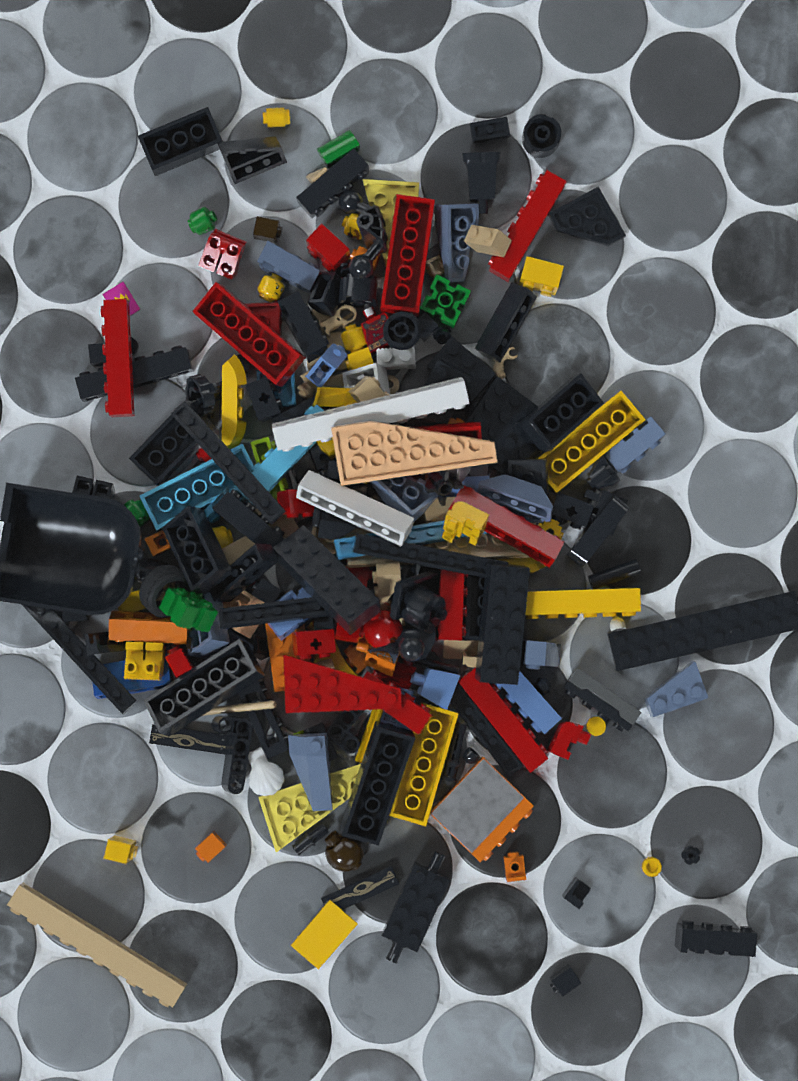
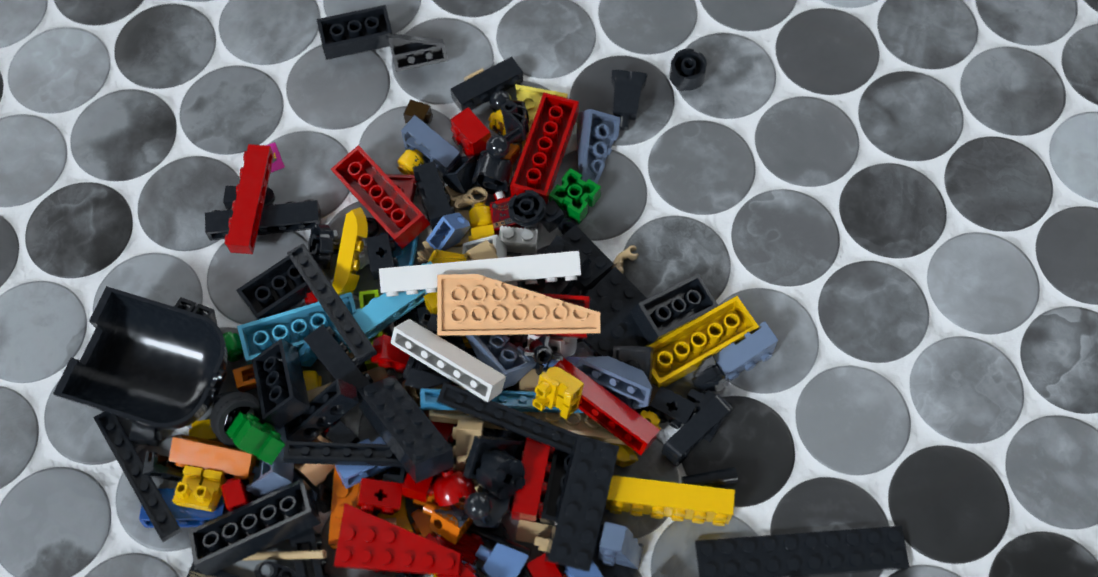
camera: 10 degrees right, 20 degrees down
(202, 221) = (359, 99): green head -> none
(222, 254) = (371, 127): red hips -> none
(276, 117) = (446, 26): yellow brick -> none
(337, 148) = (496, 56): green brick -> none
(434, 266) = (569, 163): tan slope -> none
(487, 240) = (624, 147): tan brick -> none
(489, 130) = (640, 61): black plate -> none
(505, 322) = (630, 222): black brick -> none
(528, 224) = (663, 143): red brick -> none
(541, 276) = (670, 184): yellow brick -> none
(588, 219) = (723, 145): black plate -> none
(617, 624) = (706, 532): white hinge -> none

